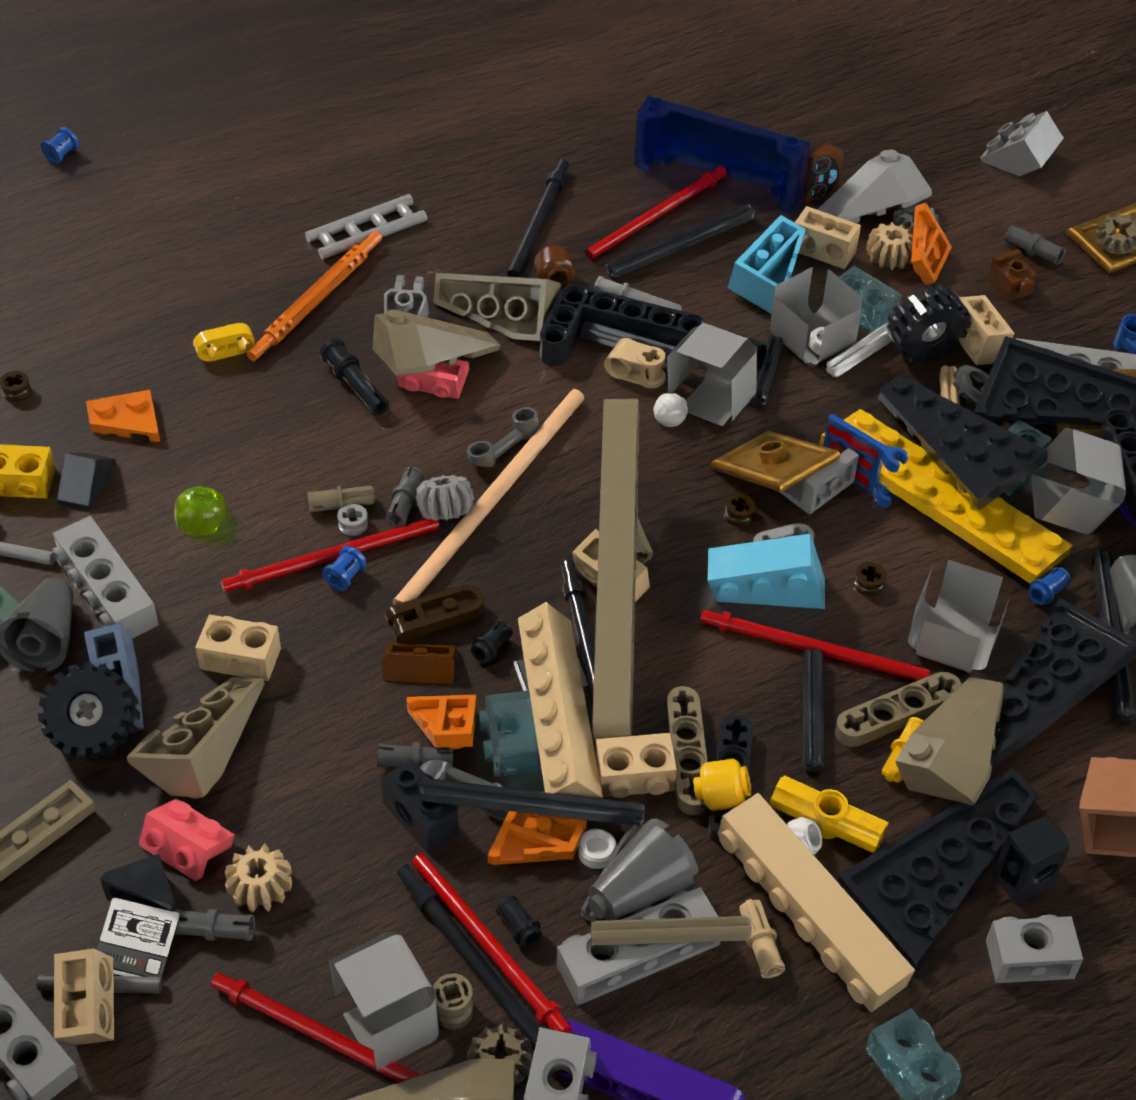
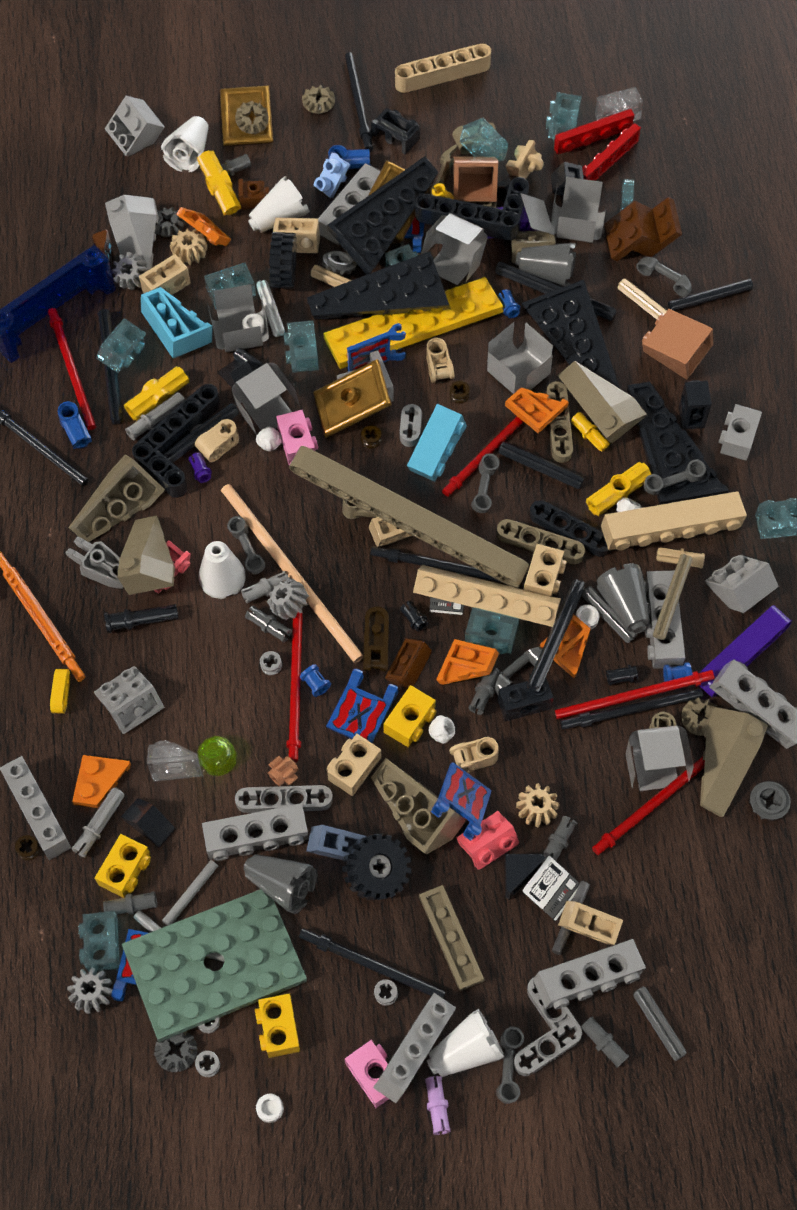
camera: 65 degrees left, 15 degrees up
(62, 370) = (35, 808): none -> light grey brick
(67, 433) = (98, 822): none -> light grey axle
(166, 460) = (172, 762): none -> clear slope
(167, 595) = (284, 794): none -> light grey beam
(198, 576) = (283, 771): none -> nougat gear
(230, 777) = (464, 796): none -> blue flag
(236, 404) = (129, 699): none -> light grey bracket
(308, 779) = (472, 754): none -> tan piece
(327, 633) = (361, 711): none -> flag
(331, 726) = (442, 729): none -> white piece
(335, 683) = (413, 703): none -> yellow brick
(338, 498) = (250, 664): dark tan axle -> none
(442, 466) = (263, 587): none -> light grey pin
(451, 418) = (220, 571): none -> white cone
(554, 989) = (676, 672): none -> blue bush
(555, 265) = (101, 453): reddish brown head -> none
(582, 232) = (73, 425): none -> blue piece
(584, 364) = (202, 472): none -> dark purple pin
(669, 286) = (156, 392): none -> yellow piece
(686, 432) = (294, 425): none -> bright pink brick
(708, 226) = (121, 345): none -> clear light blue brick
(722, 784) = (585, 531): yellow head -> none
(761, 1037) = (742, 582): none -> light grey slope
(772, 648) = (487, 467): none -> dark grey bar
(817, 196) = (122, 270): none -> light grey gear
(824, 393) = (304, 357): none -> clear light blue brick
(894, 665) = (535, 408): none -> orange wing
(899, 536) = (439, 364): none -> tan piece
(912, 893) = (692, 473): none -> dark grey bar
(999, 235) = (218, 182): none -> yellow piece
(1016, 298) = (280, 202): none -> white cone
(1034, 192) = (186, 144): none -> white cone
(1103, 334) = (332, 175): none -> light blue hips

